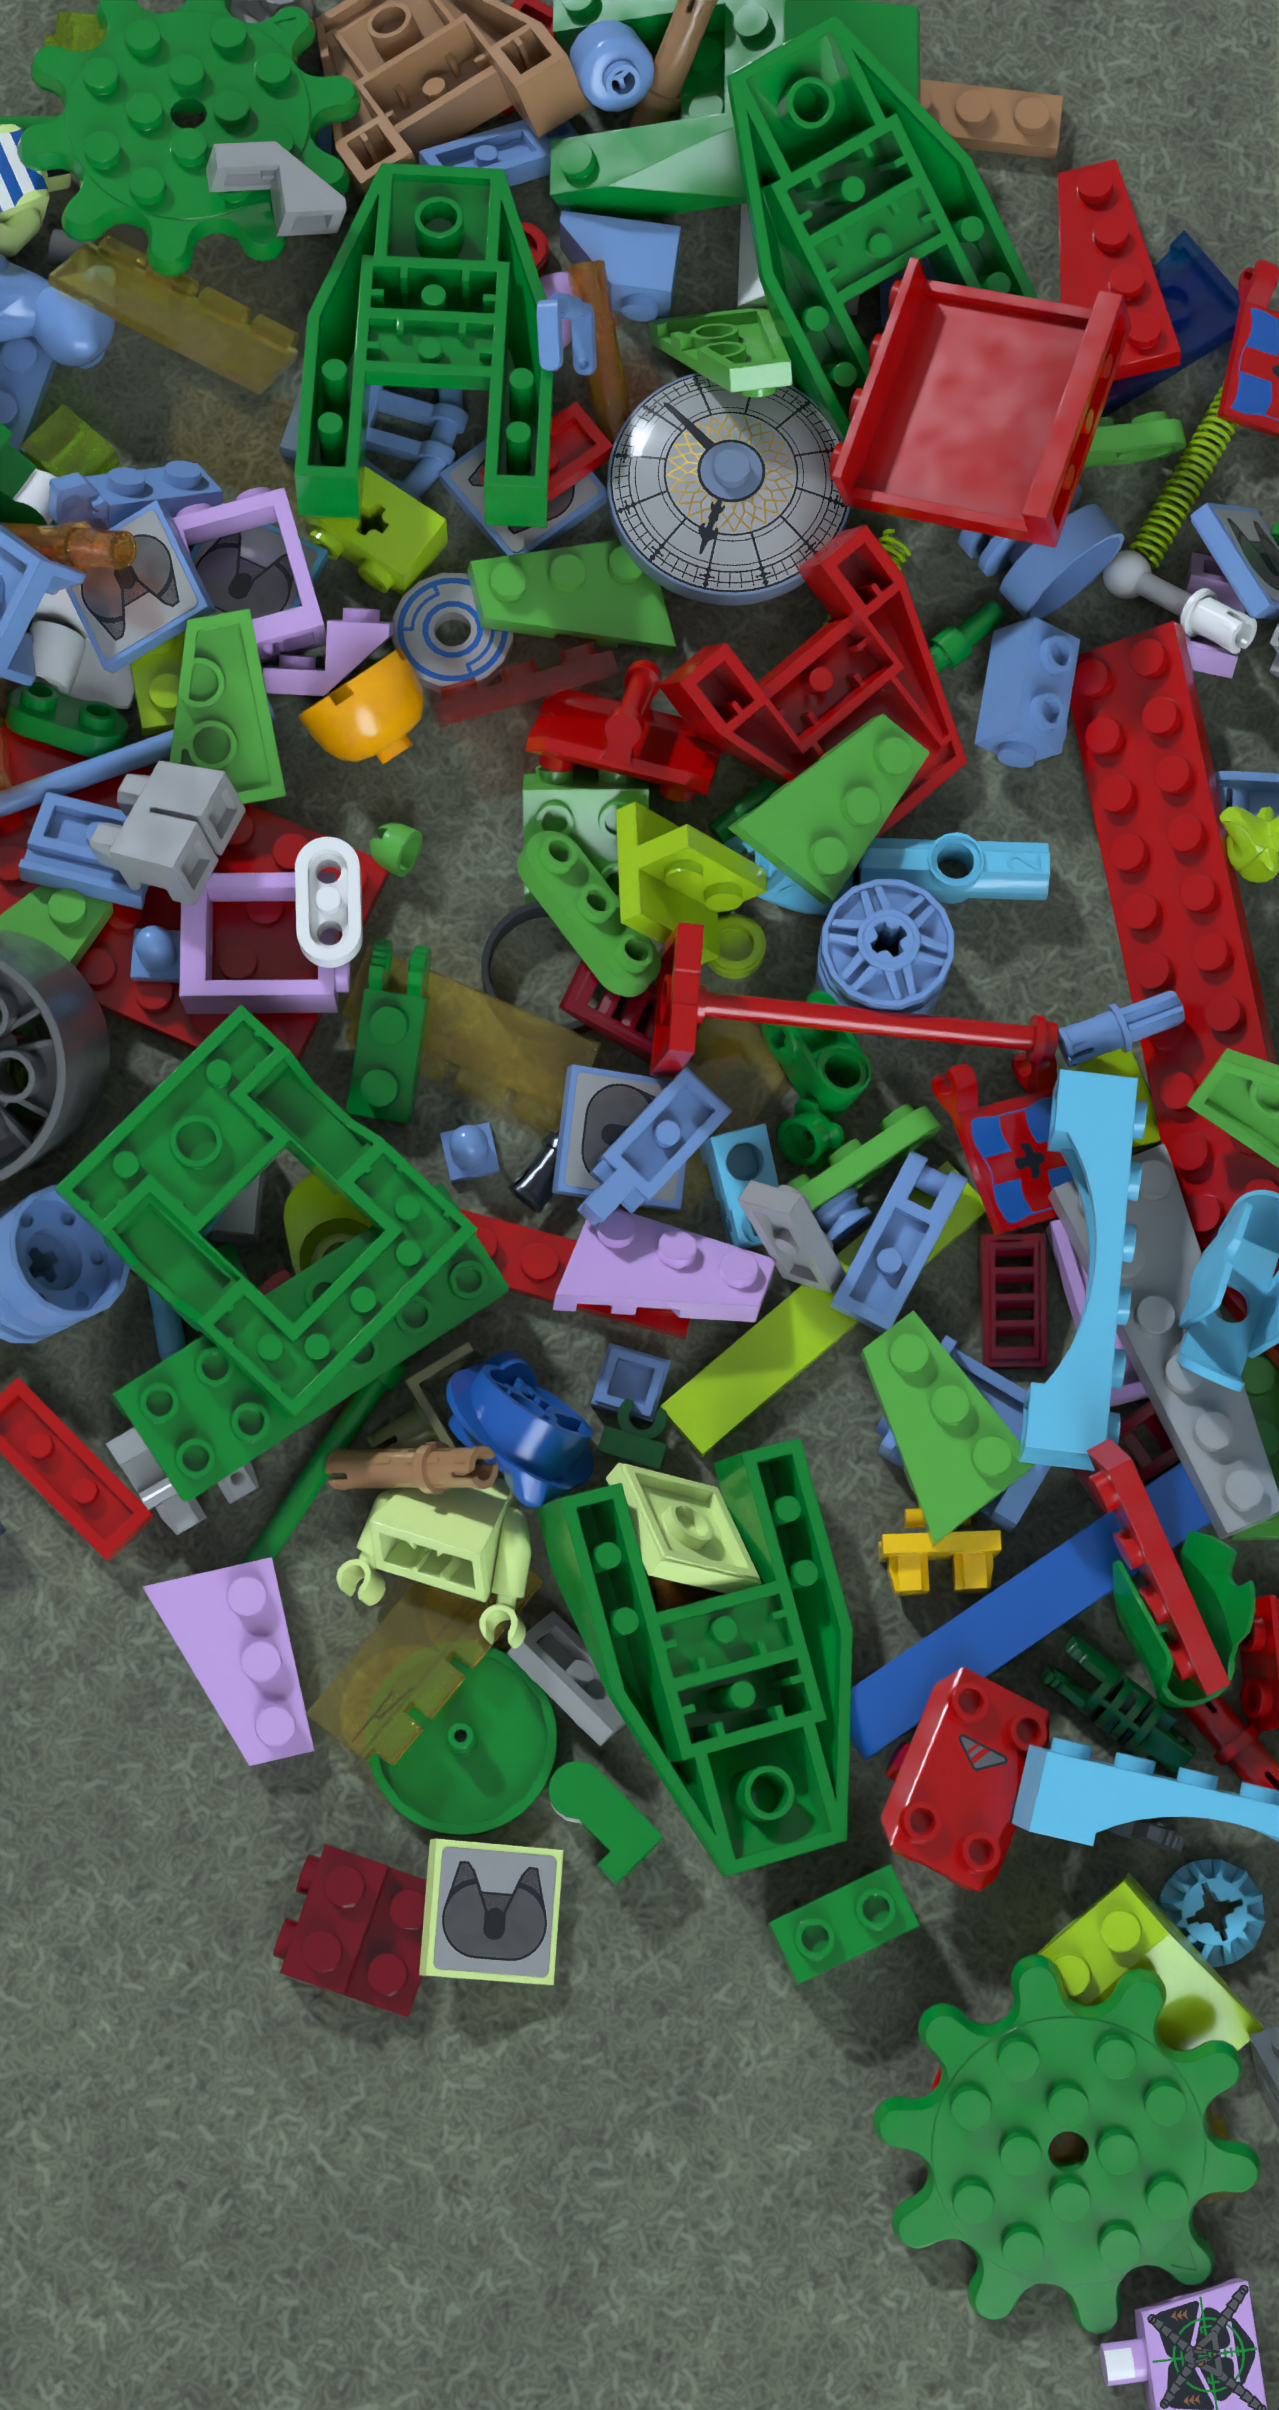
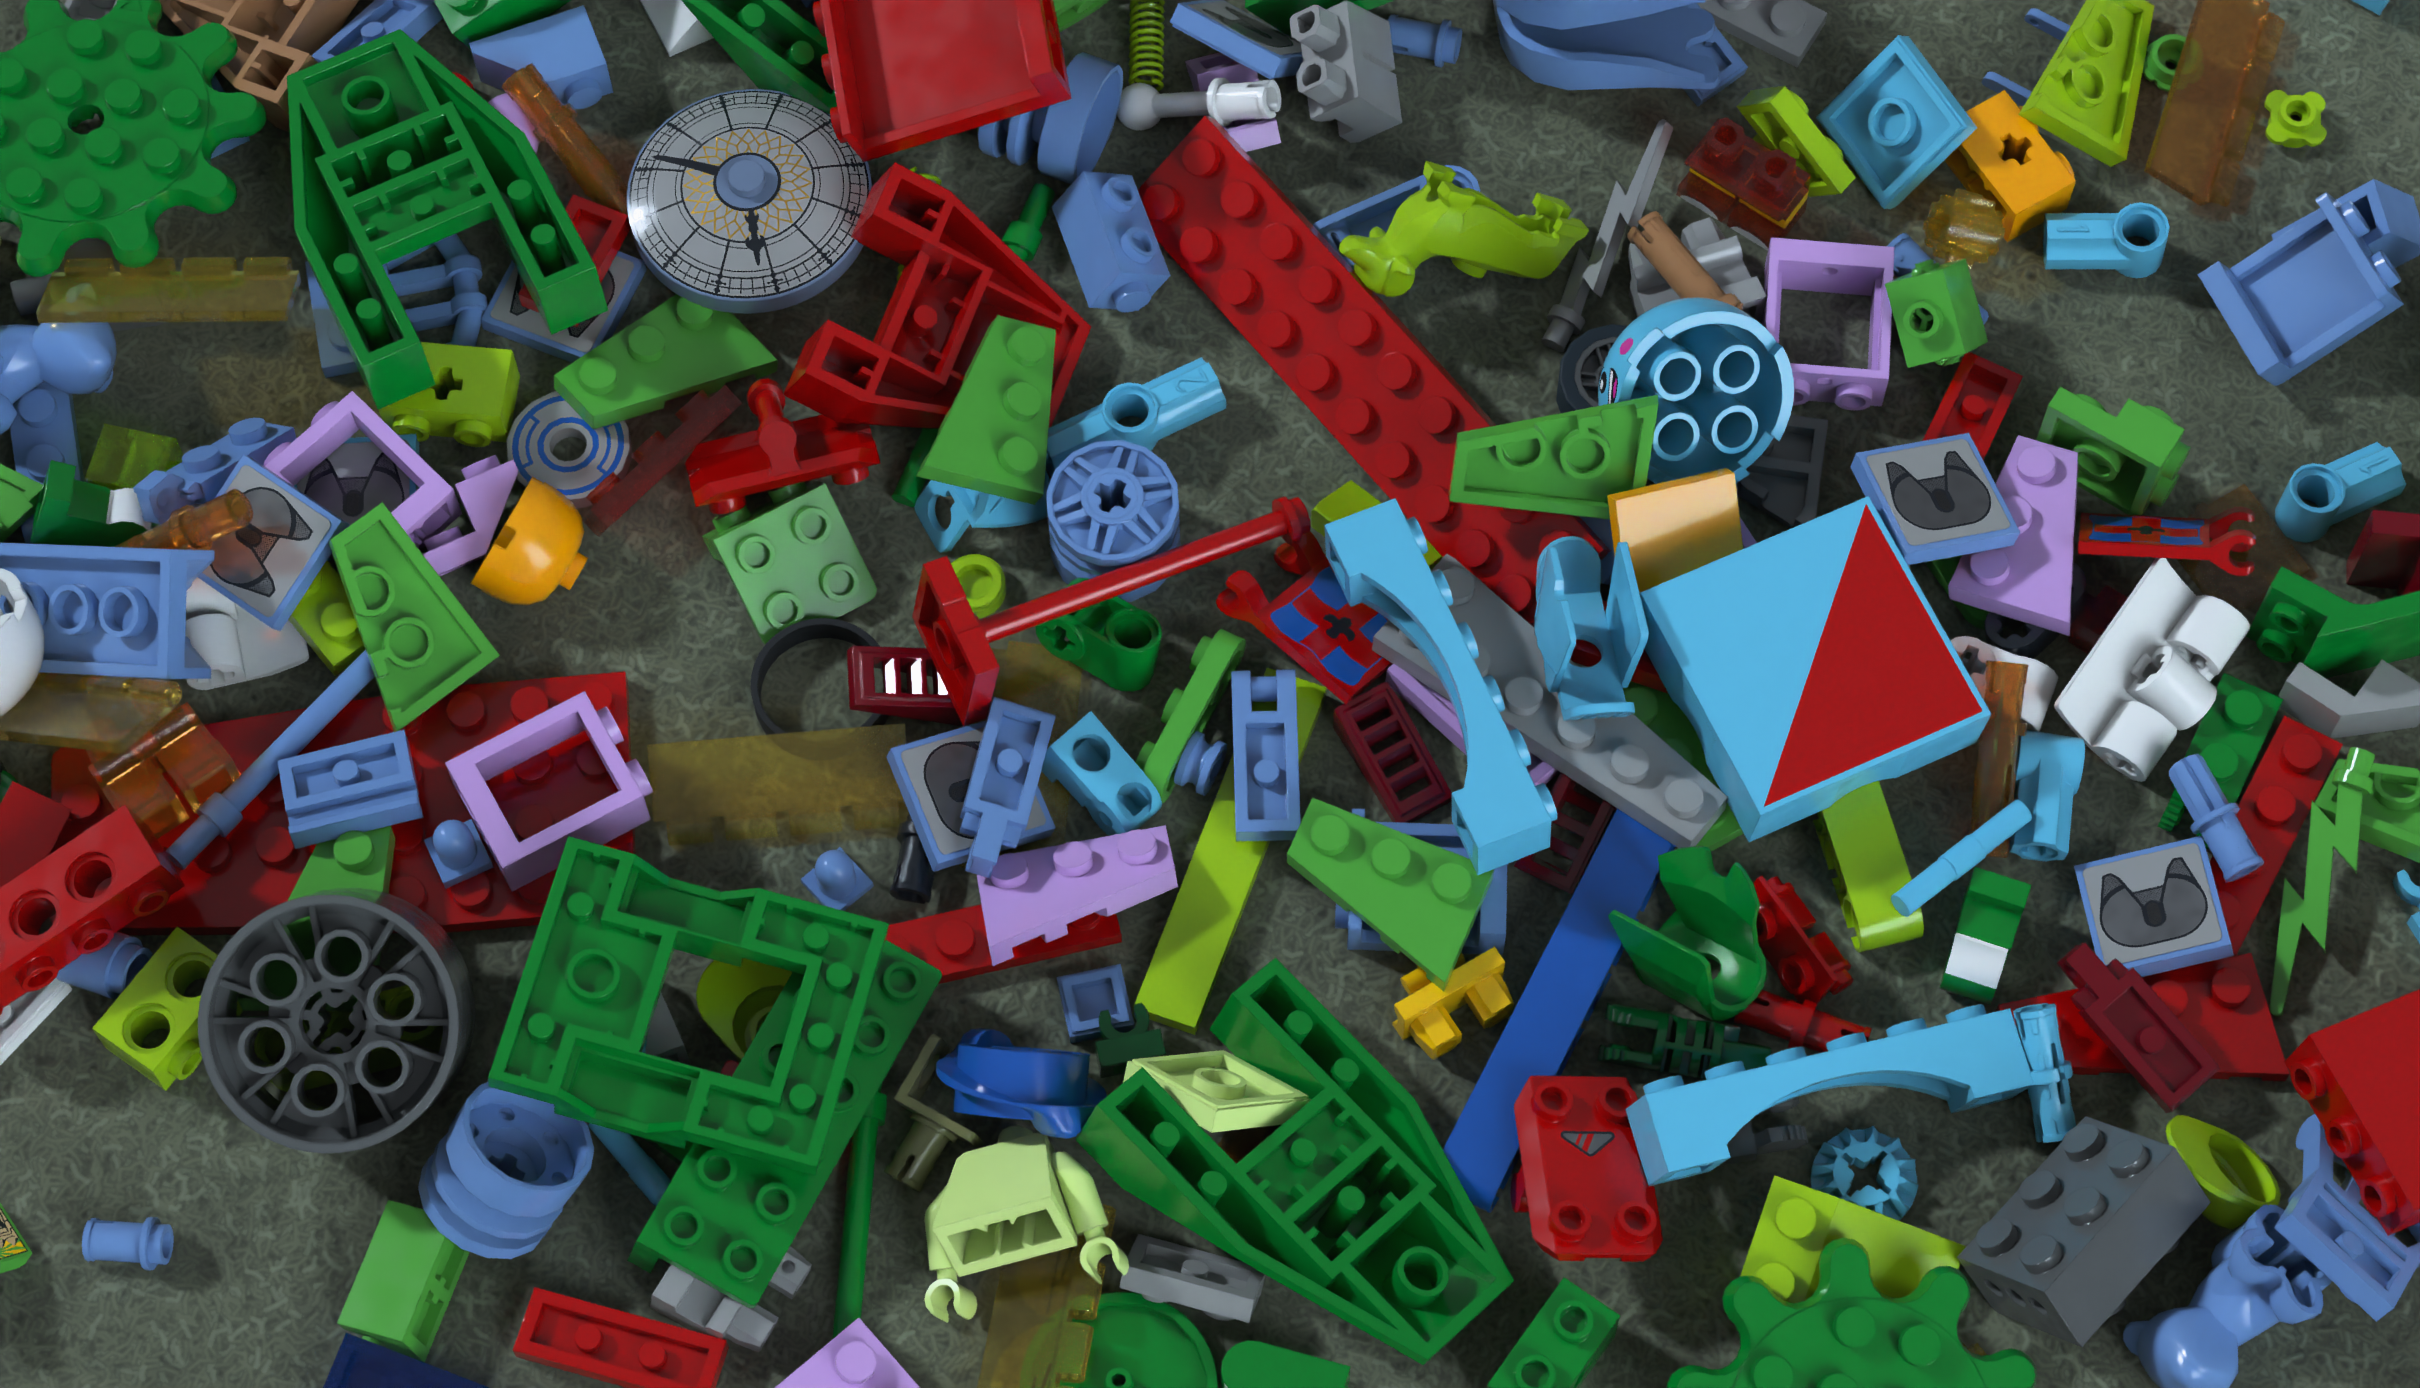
camera: 25 degrees left, 10 degrees down
(65, 721) = (236, 701): green plate -> none
(171, 828) = (416, 725): light grey hips -> none
(299, 196) = (227, 134): light grey slope -> none
(328, 905) = (599, 717): white plate -> none
(390, 1038) = (711, 814): green hinge -> none
(396, 848) = (622, 654): bright green hinge -> none
(429, 1468) = (962, 1153): medium nougat pin -> none
(550, 341) = (537, 136): medium blue piece -> none
(564, 885) = (832, 613): bright green plate -> none
(678, 877) = (892, 537): lime bracket -> none
(729, 348) = (686, 82): bright green wing -> none
(792, 1235) = (1169, 792): light grey plate -> none
(798, 1143) = (1125, 722): green plate -> none
(1119, 1028) = (1354, 473): medium blue axle -> none
(1146, 1547) = (1635, 881): red plate -> none

